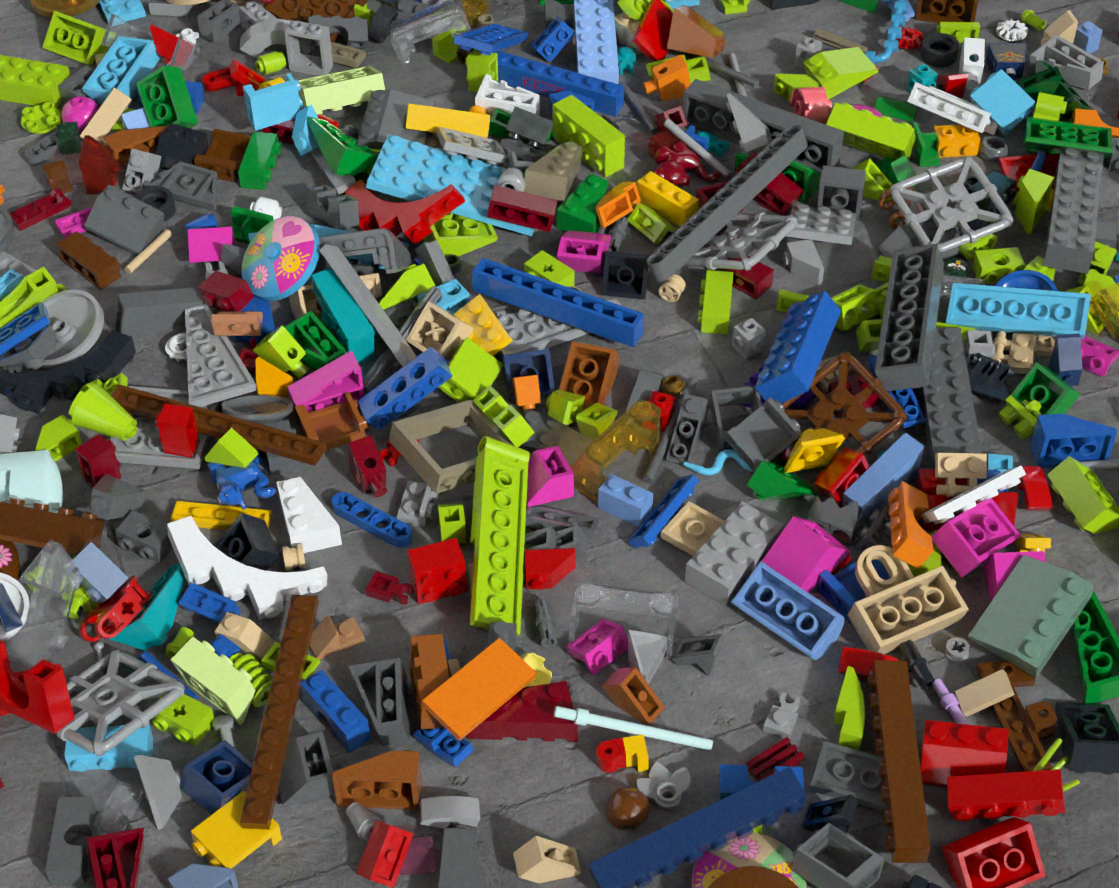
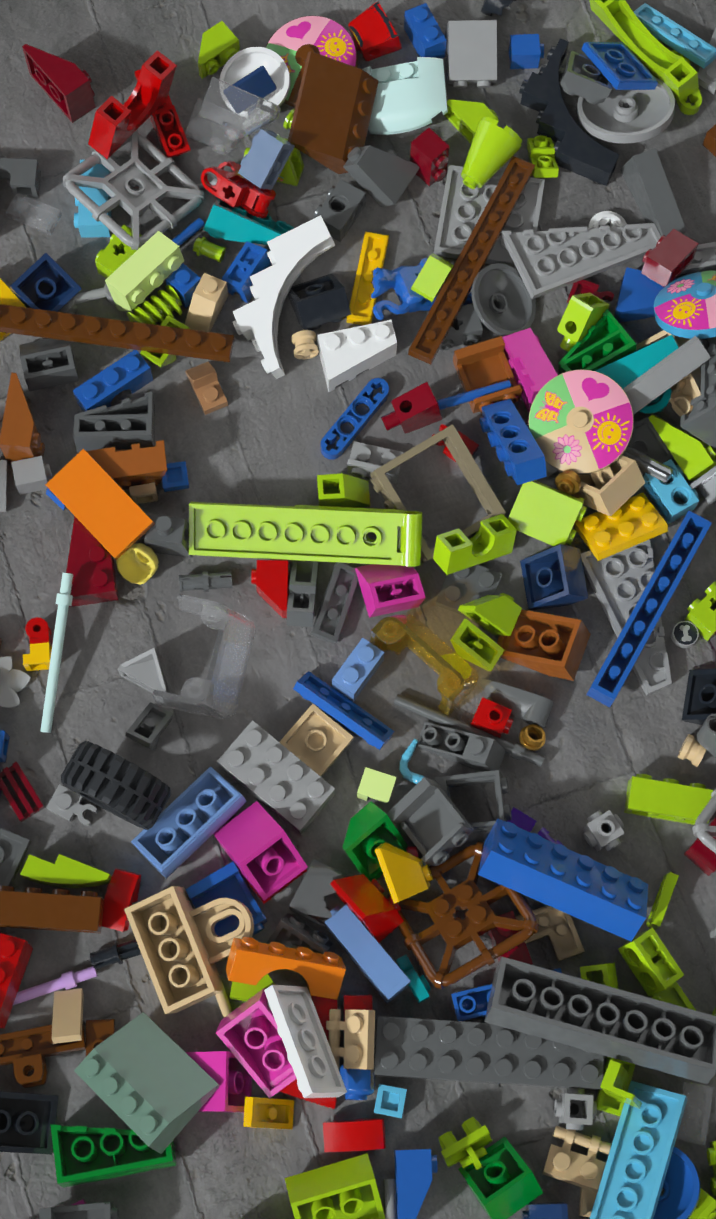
camera: 90 degrees right, 25 degrees up
(160, 786) = (37, 235): light grey slope -> none
(177, 430) = (458, 220): red brick -> none
(237, 323) = (625, 273): nougat panel -> none
(271, 379) = (549, 313): light orange slope -> none
(348, 422) = (471, 395): none -> blue bar
(386, 586) = (261, 430): dark red plate -> none
(388, 333) = (581, 421): none -> dish
(437, 571) = (265, 473): red brick -> none
(437, 776) = (31, 474): none -> light grey brick
(446, 348) = (568, 482): none -> pearl gold plate
(526, 391) = (522, 573): orange brick -> none
(599, 645) = (172, 630): dark pink bracket -> none
(633, 694) = (105, 658): dark orange slope -> none
(731, 484) = (376, 785): none -> yellowish green panel
(767, 651) = (116, 785): none -> black tyre
(954, 314) = (614, 1083): none -> lime panel
(954, 655) = (129, 998): light grey bush -> none
(988, 376) = (526, 1112): black hinge -> none

